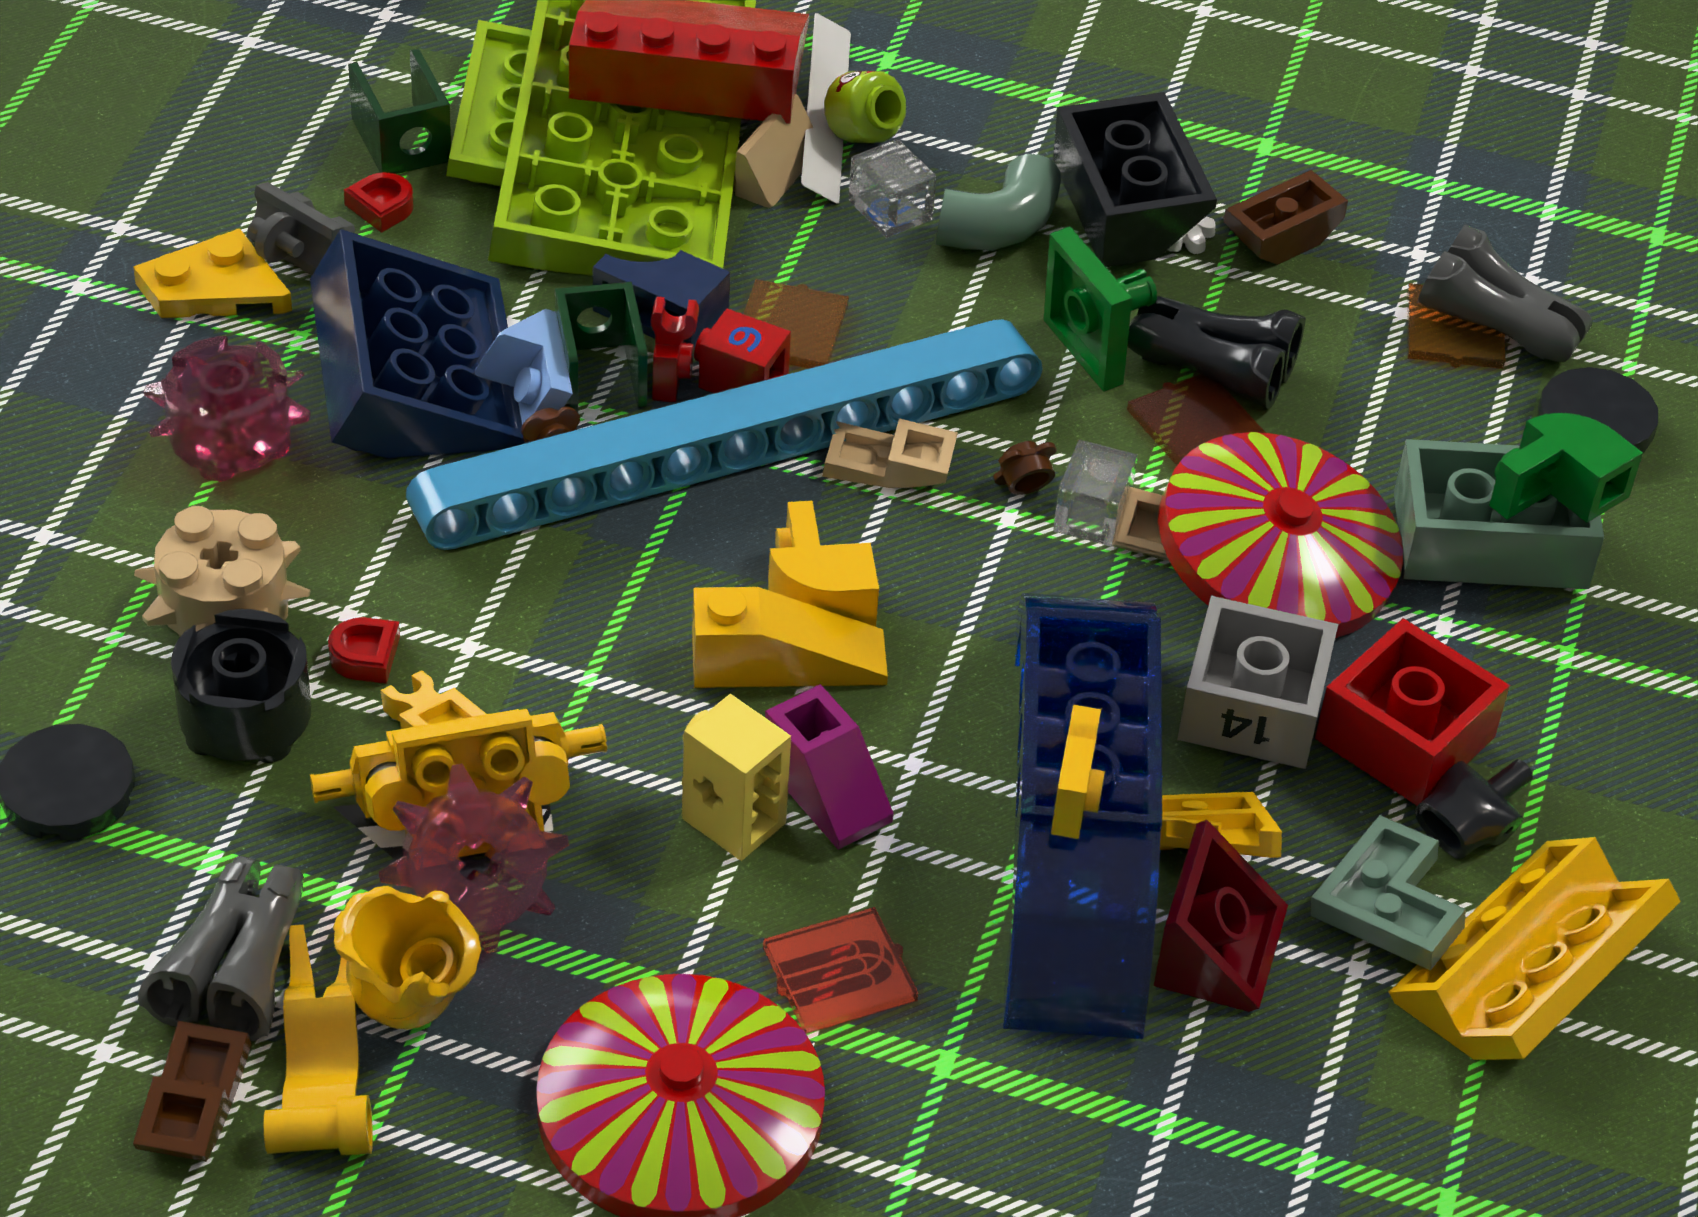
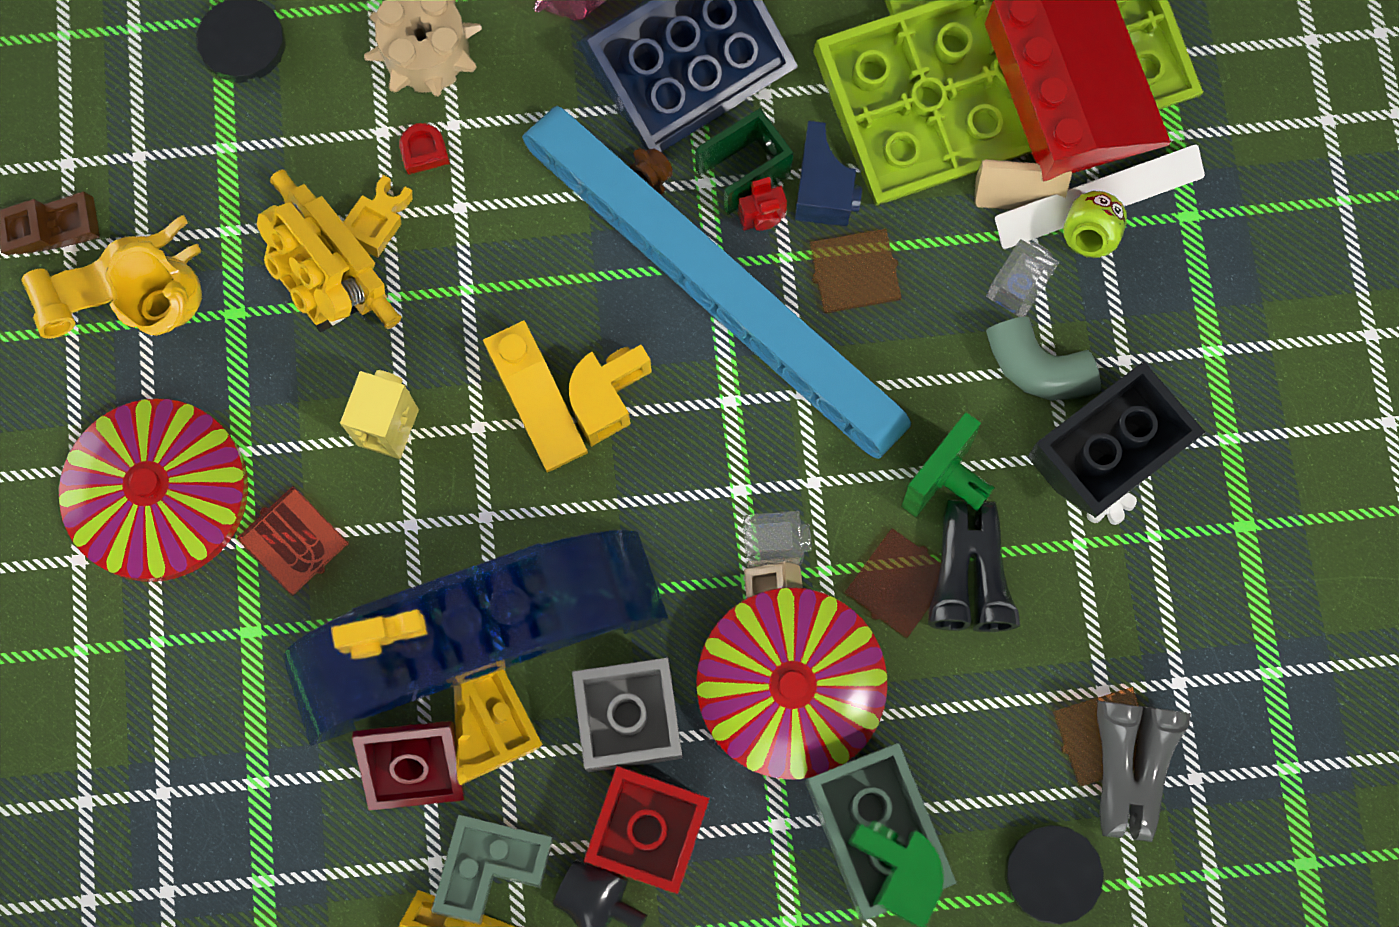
camera: 70 degrees right, 30 degrees up
(242, 687) = (335, 96): black brick -> none
(244, 986) = (174, 190): dark grey piece -> none
(468, 818) = (242, 294): clear pink brick -> none
(532, 362) = (710, 120): light blue slope -> none
(741, 352) = (787, 255): red brick -> none
(831, 768) = (426, 467): magenta slope -> none
(910, 458) = (751, 389): tan slope -> none
(1026, 467) = (776, 484): reddish brown plate -> none
(1287, 217) = (1147, 567): reddish brown slope -> none

